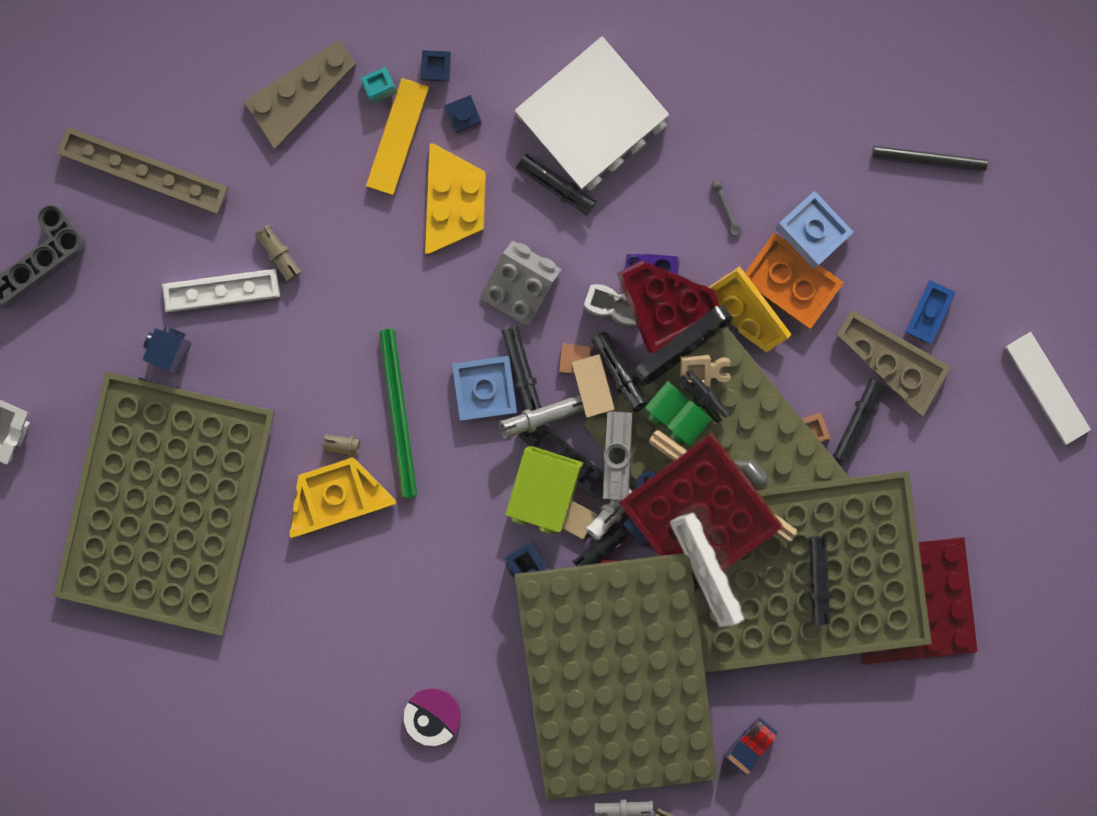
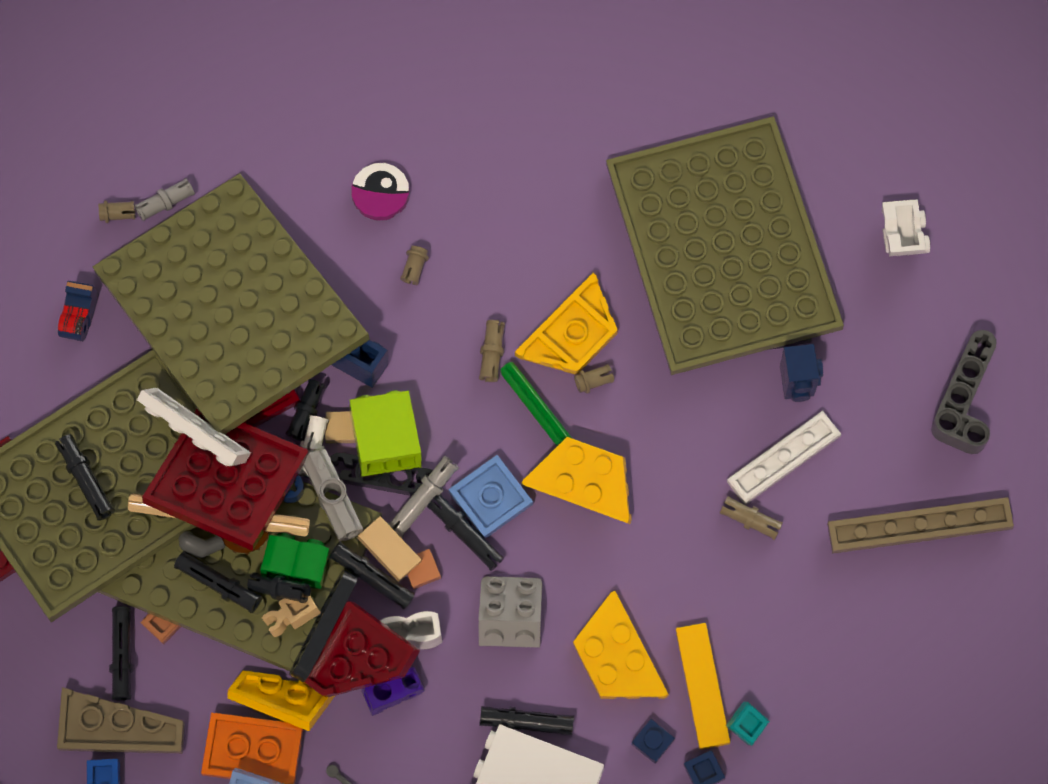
camera: 155 degrees right, 15 degrees down
(292, 97) = (821, 671): dark tan wing -> none
(398, 359) = (585, 478): none -> yellow wing
(414, 517) = (491, 351): none -> dark tan pin
(439, 631) = (414, 264): none -> dark tan pin
(745, 420) = (228, 588): none -> black pin

